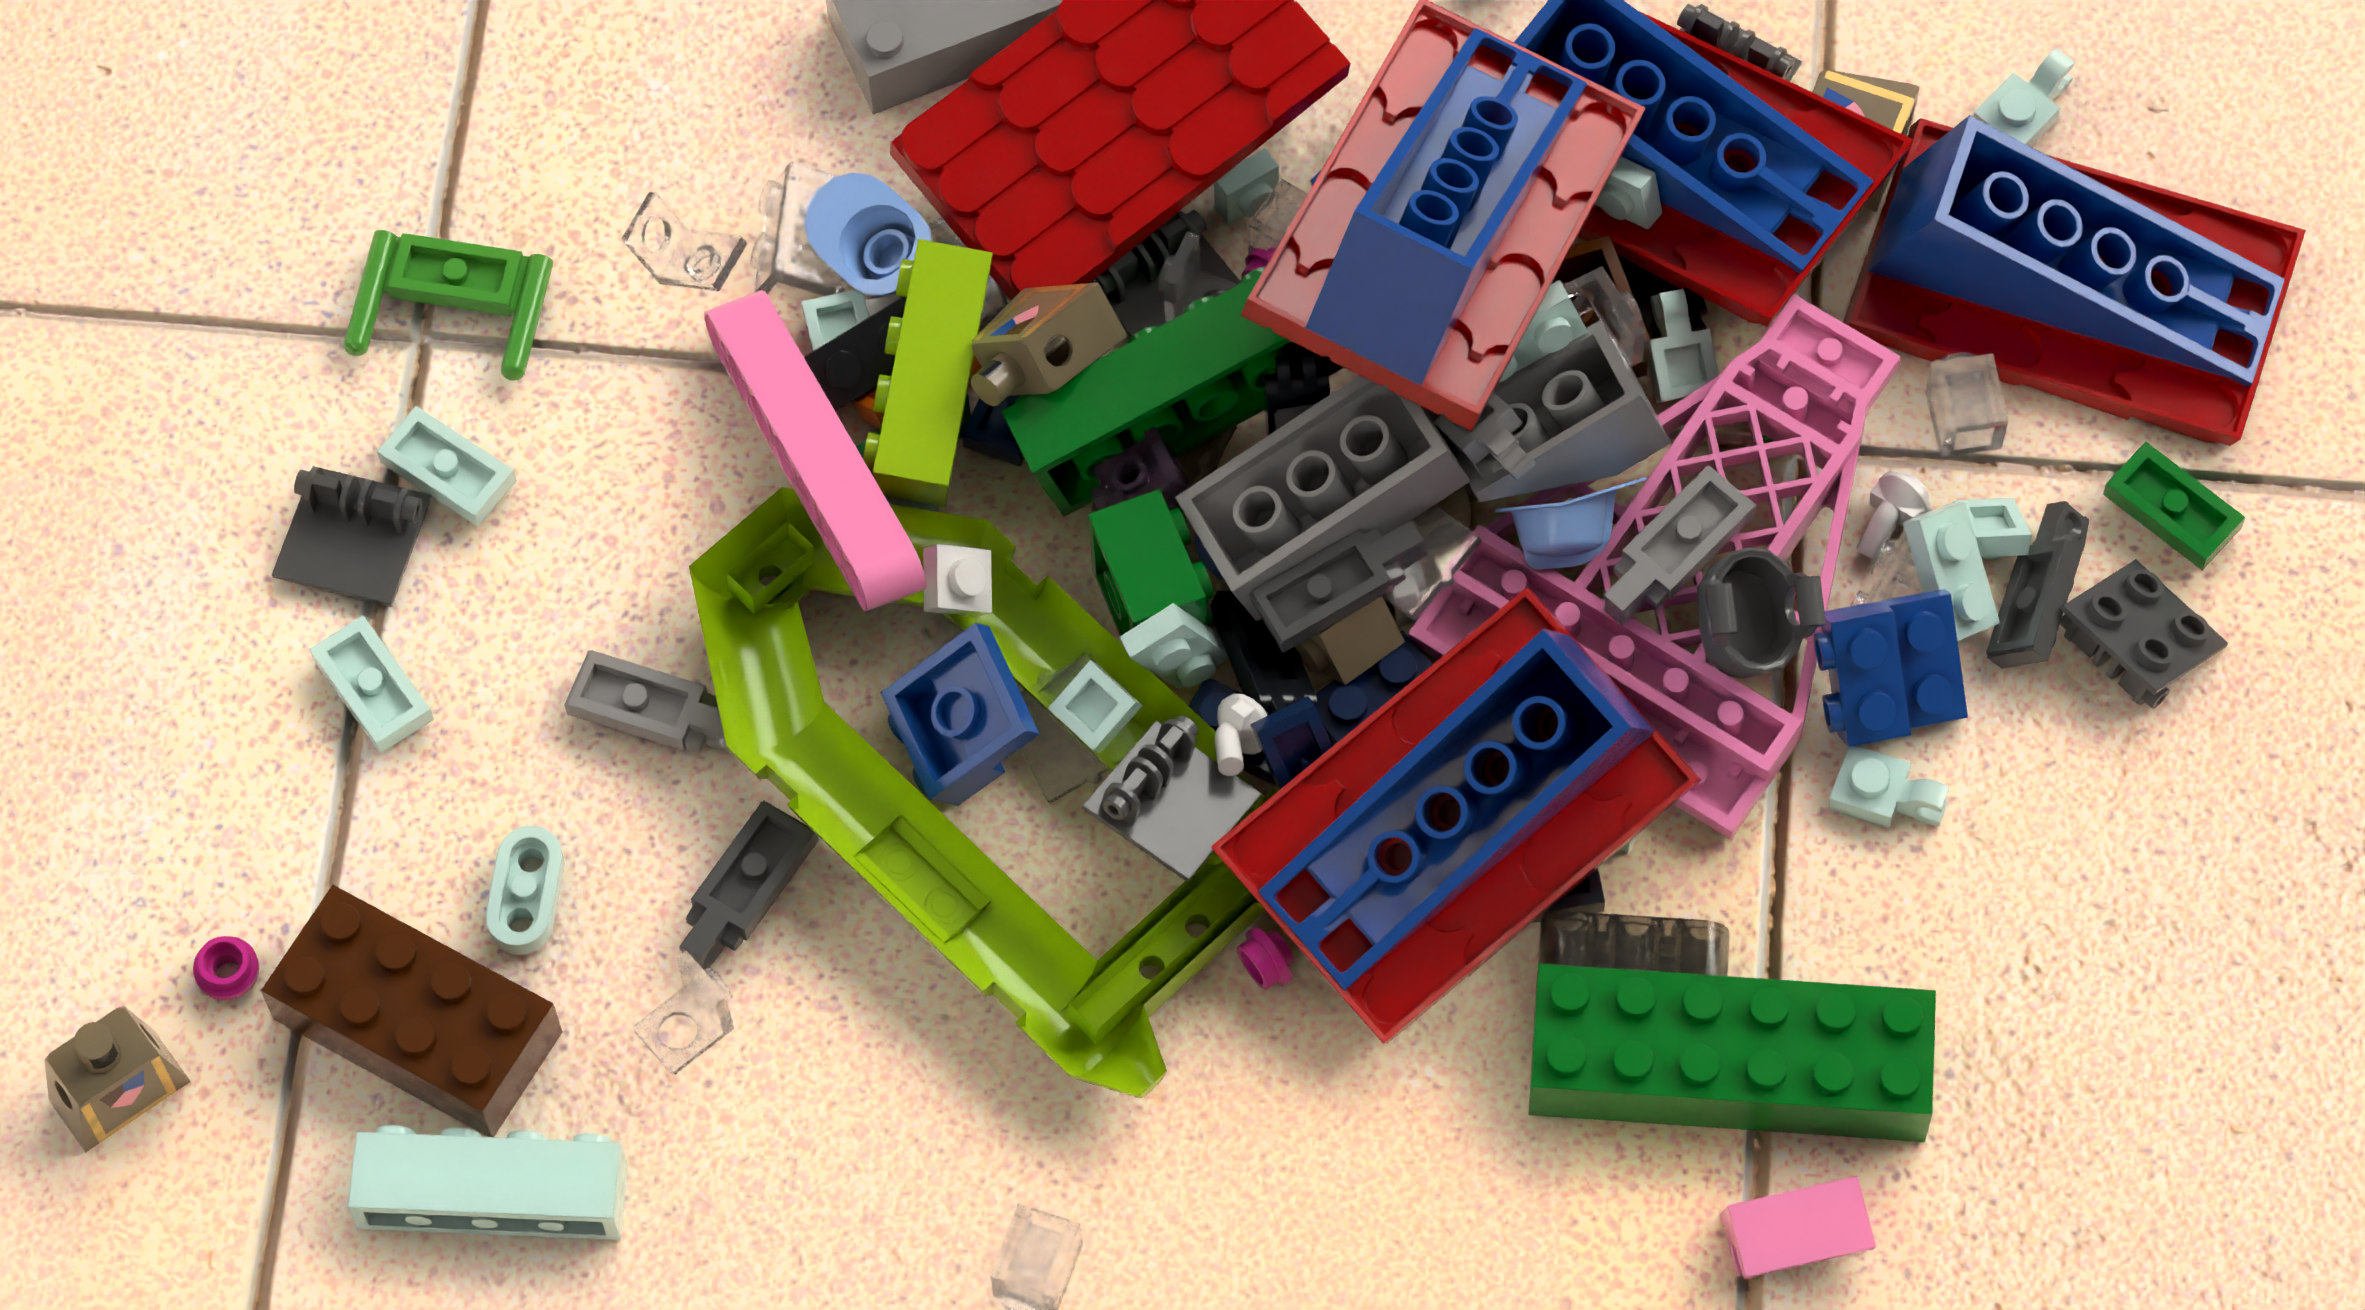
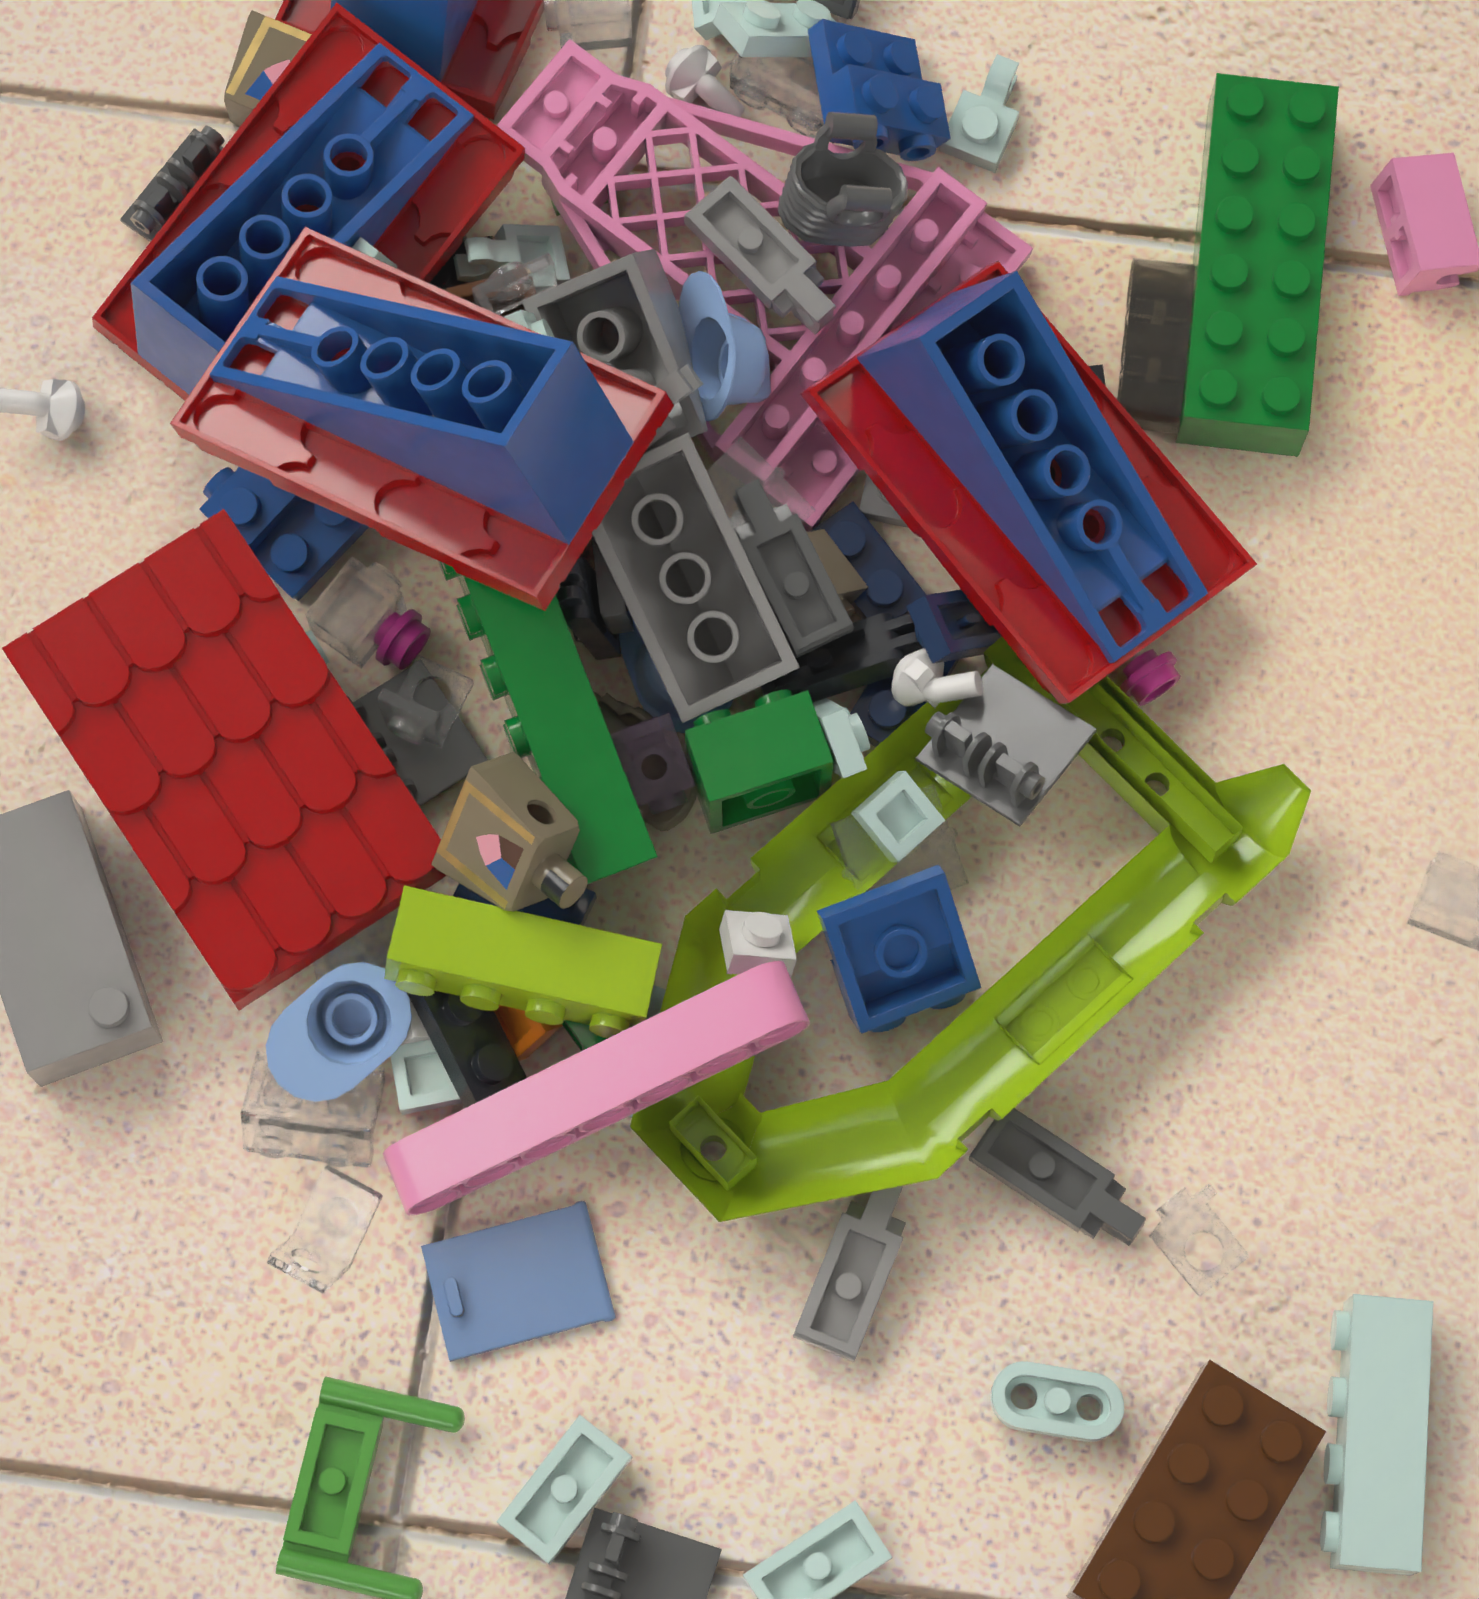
camera: 90 degrees left, 10 degrees up
(646, 423) = (518, 1281): none -> medium blue container

